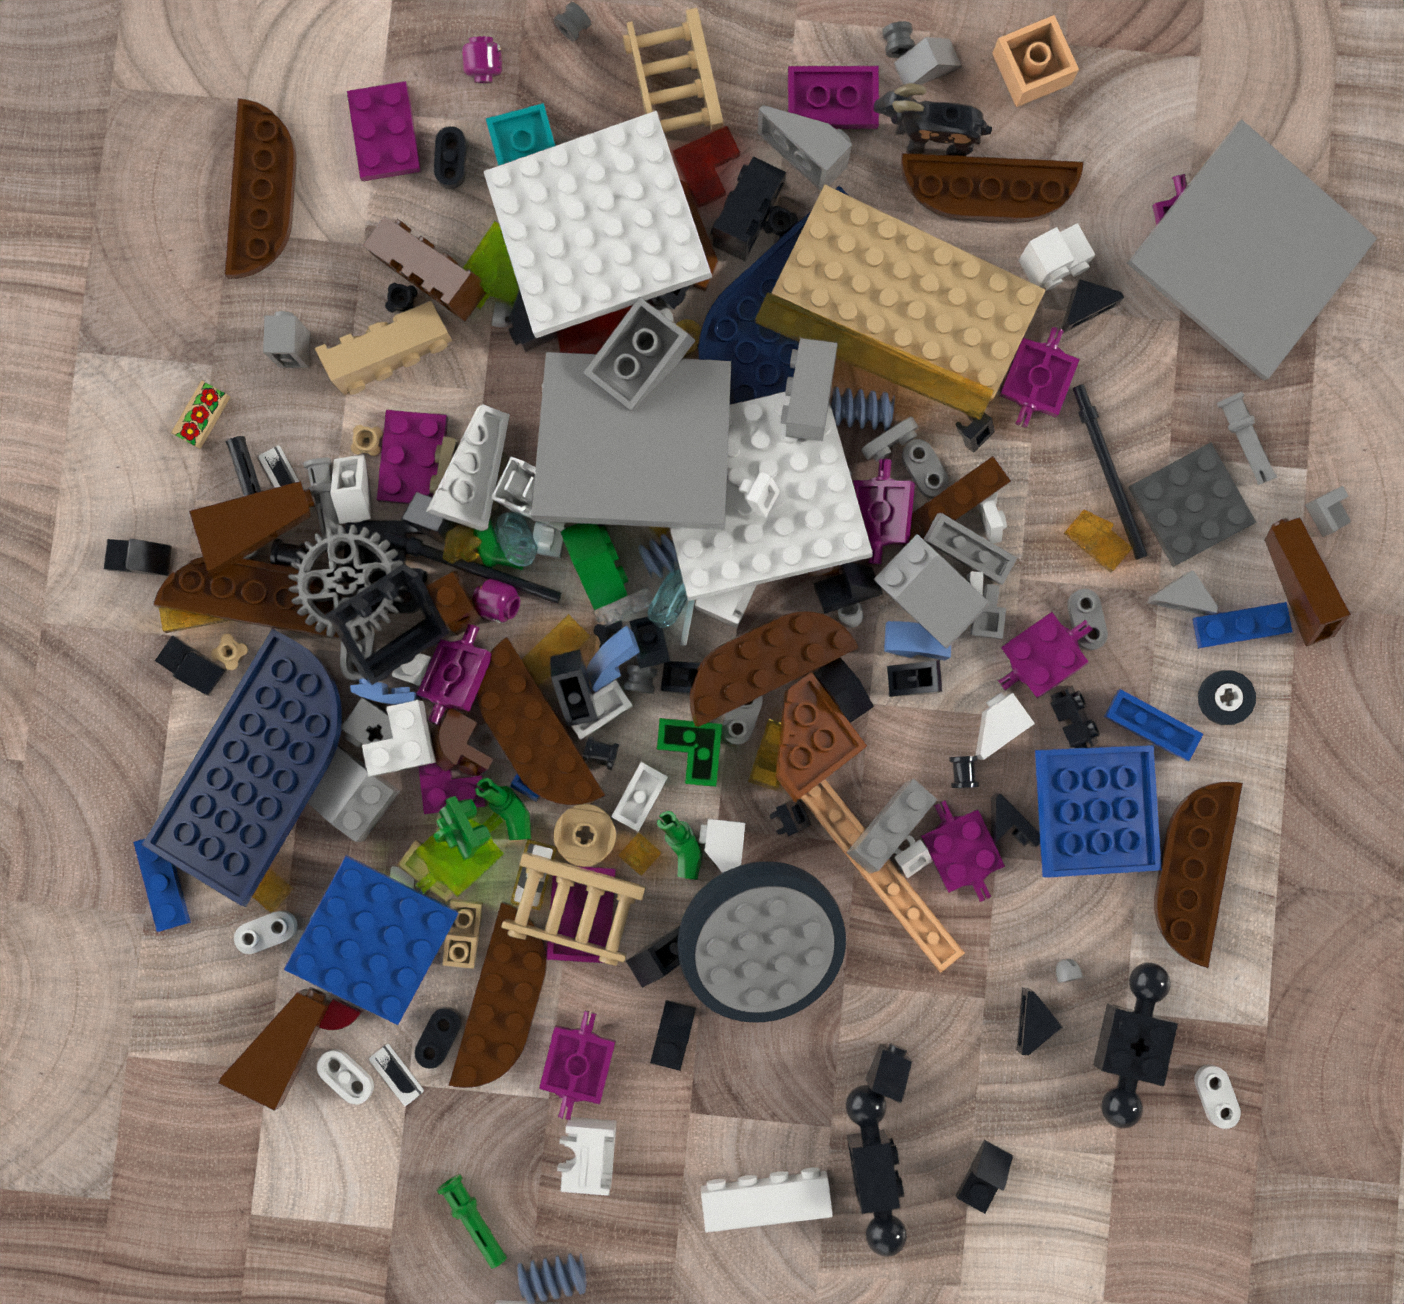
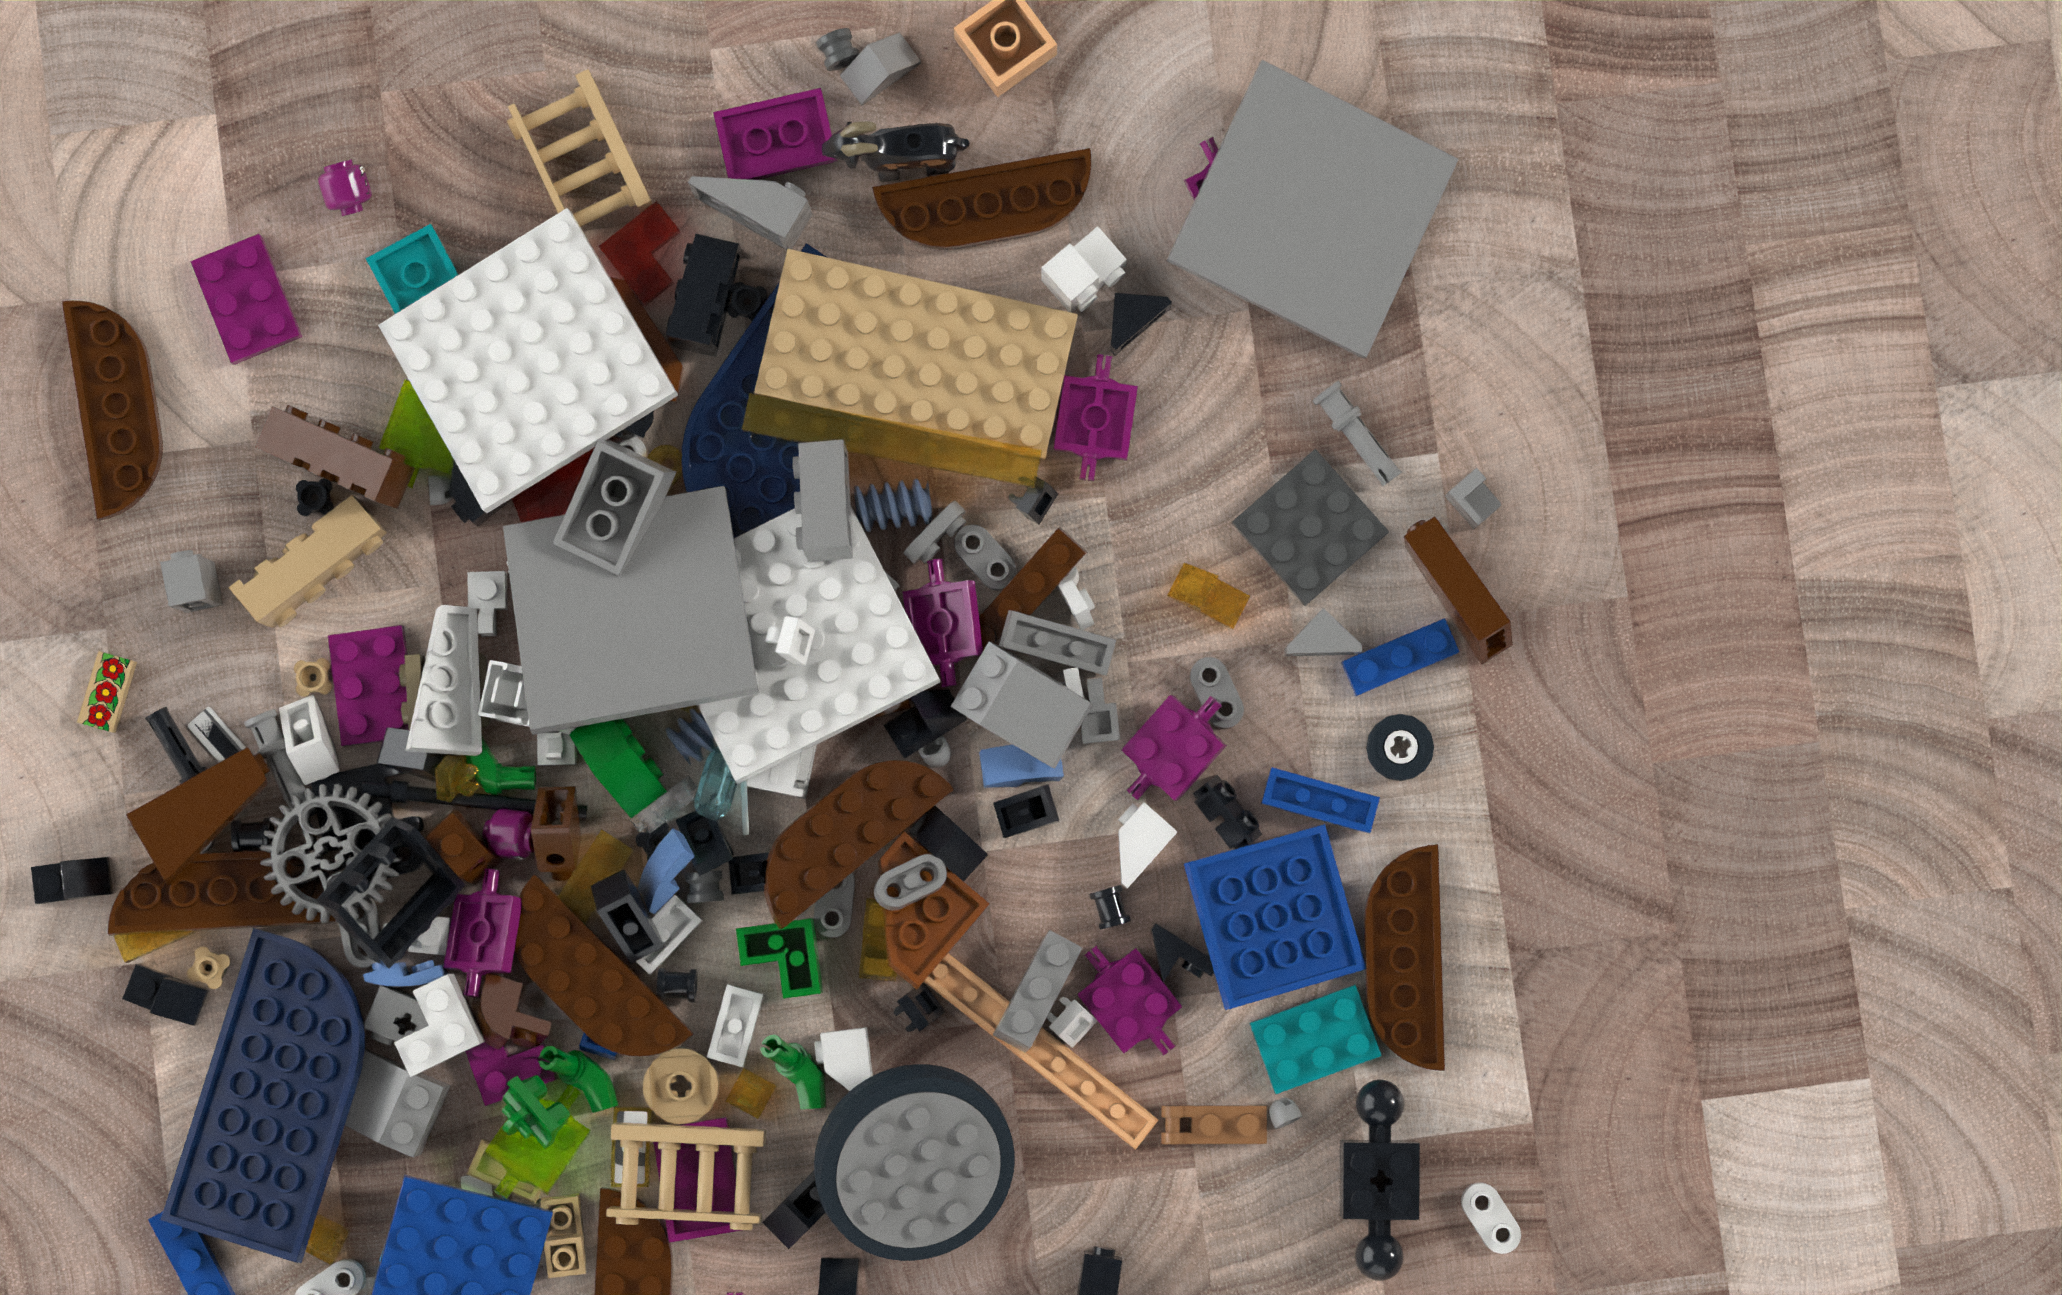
camera: 15 degrees left, 0 degrees up
(450, 159) = (333, 315): black plate -> none
(512, 535) = (513, 748): clear light blue plate -> none
(522, 407) = (487, 593): none -> white plate
(529, 615) = (556, 845): none -> reddish brown torso
(572, 21) = (442, 116): dark grey wheel -> none
(807, 713) = (908, 882): none -> light grey plate
(1010, 967) = (1215, 1124): none -> medium nougat plate
(1035, 1023) = (1258, 1180): black slope -> none
(1089, 415) = (1165, 450): black bar -> none
(1105, 917) = (1315, 1039): none -> teal plate

